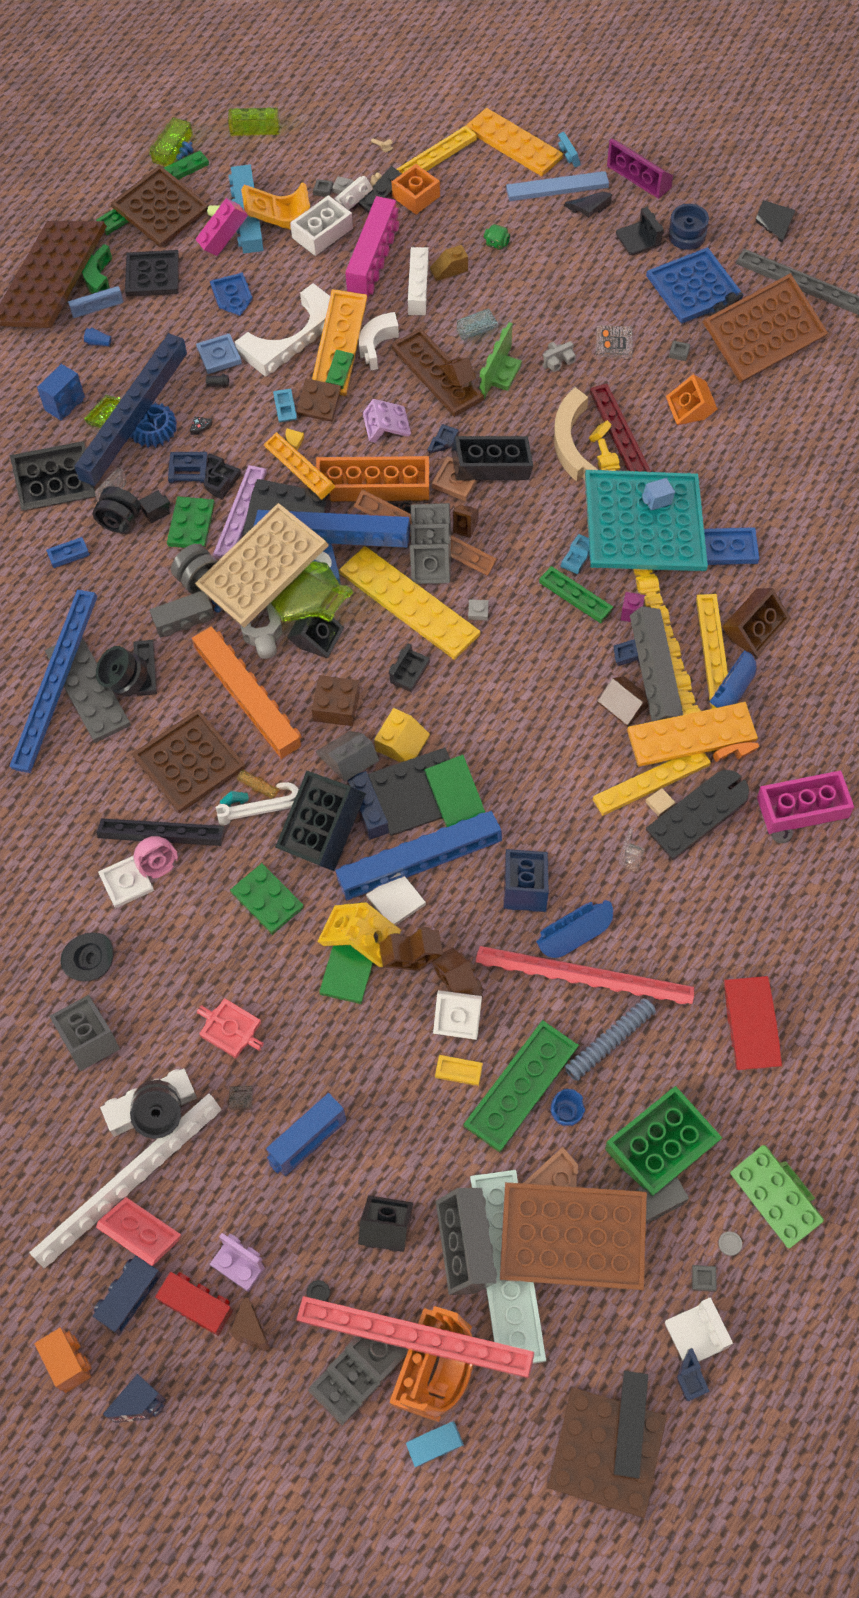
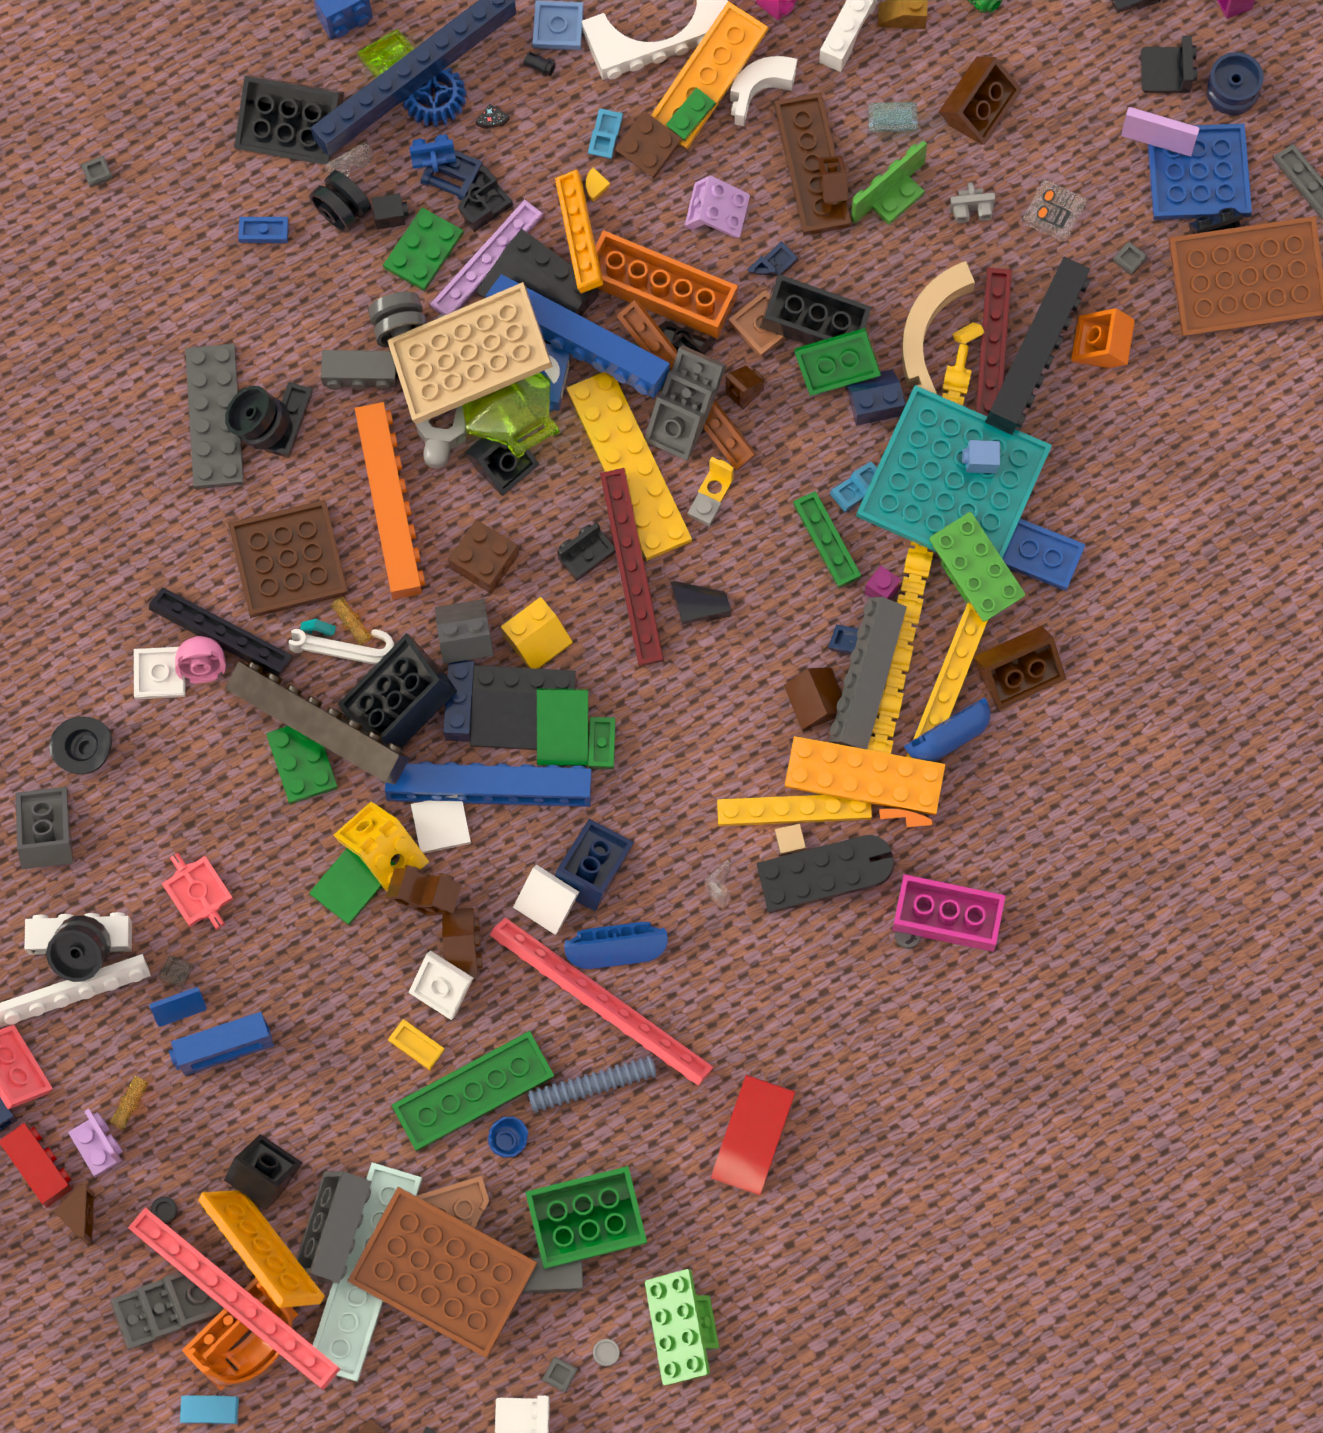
camera: 25 degrees right, 10 degrees up
(53, 681) = (178, 394): blue plate -> none
(169, 456) = (432, 153): none -> blue hips
(249, 1217) = (129, 1102): none -> clear yellow pin
(255, 1123) = (178, 1006): none -> blue slope
(269, 861) = (317, 722): none -> dark brown brick
(420, 1284) = (261, 1248): none -> light orange plate
(448, 665) = (632, 567): none -> dark red plate
(477, 581) = (721, 472): none -> yellow bracket
(488, 792) = (601, 743): none -> green plate
(505, 917) = (546, 899): none -> white tile
(509, 670) = (700, 603): none -> black slope
(523, 477) = (837, 361): none -> green plate
(528, 294) = (980, 99): none -> reddish brown slope
(560, 493) = (876, 398): none -> dark blue slope
(654, 419) = (1037, 346): none -> black brick
(660, 264) = (1160, 131): none -> lavender tile
(691, 568) = (976, 567): none -> bright green bracket

